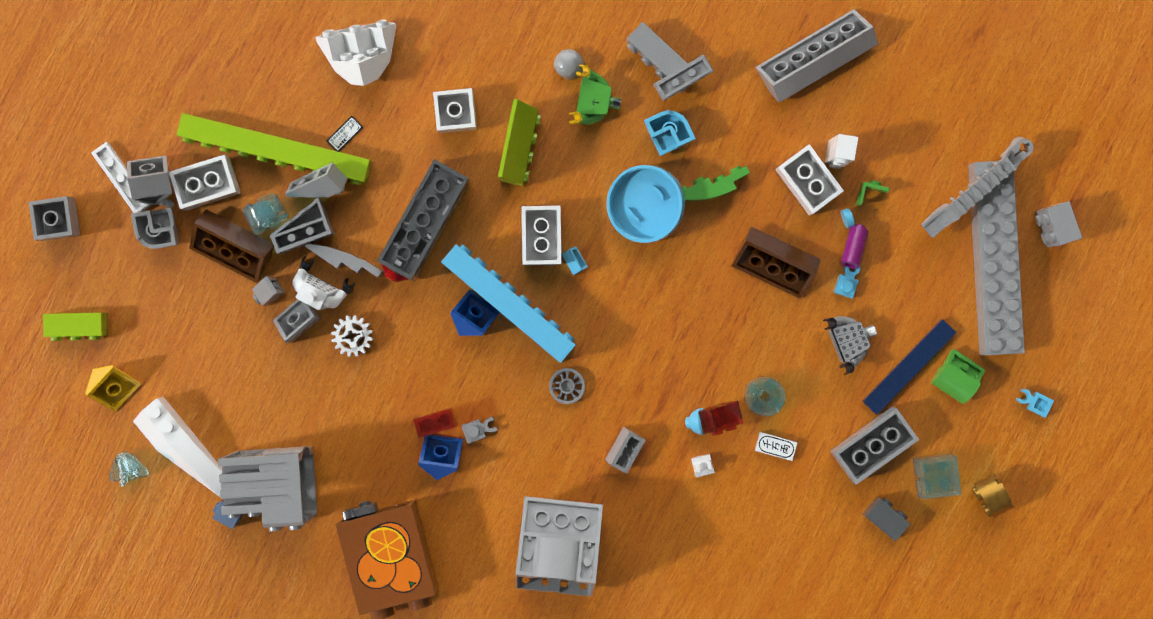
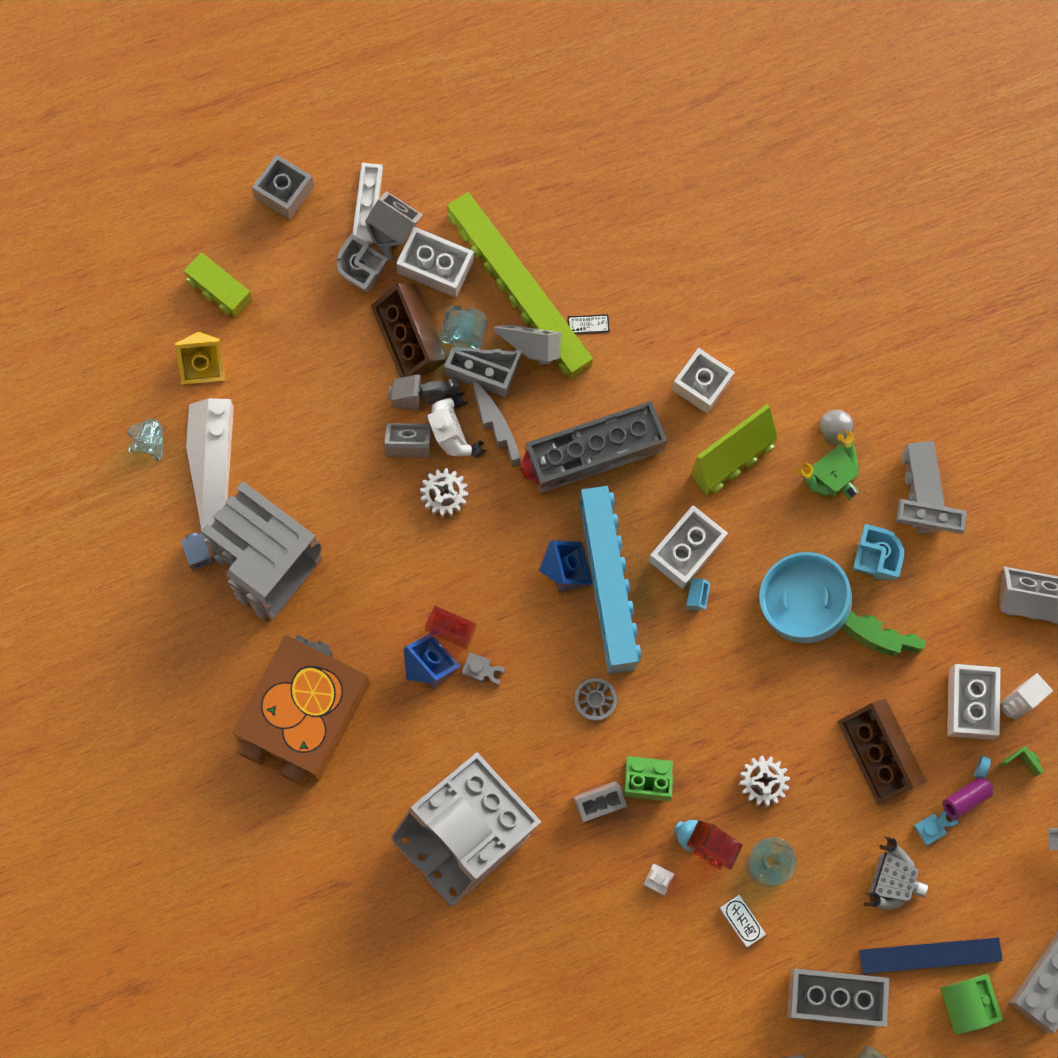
camera: 30 degrees right, 15 degrees down
(287, 270) = (437, 390): none -> flat silver plate
(359, 51) = (662, 267): white brick -> none
(644, 409) = (648, 779): none -> bright green brick
(723, 340) = (765, 791): none -> white gear

